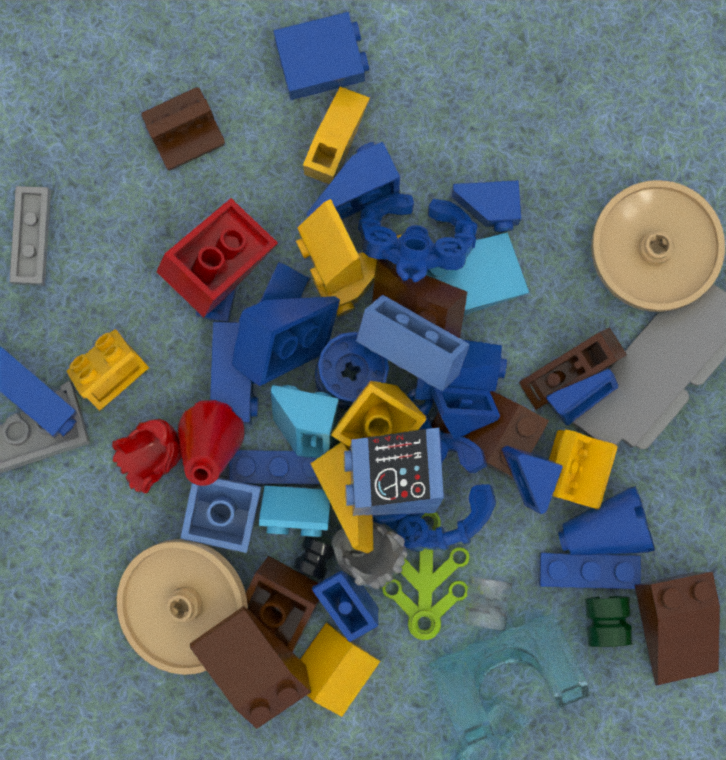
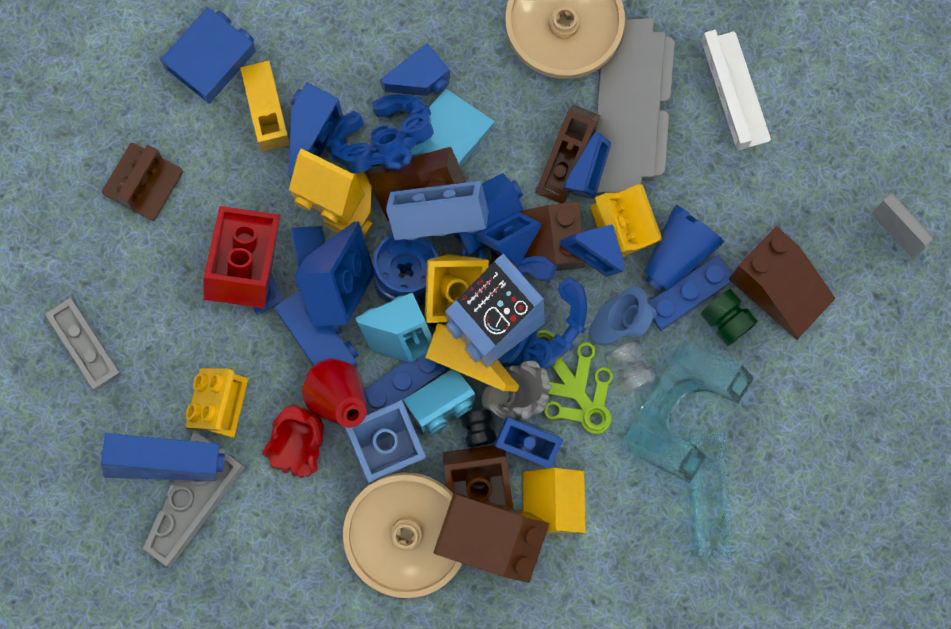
camera: 40 degrees left, 5 degrees down
(513, 551) = (623, 316): none -> medium blue piece

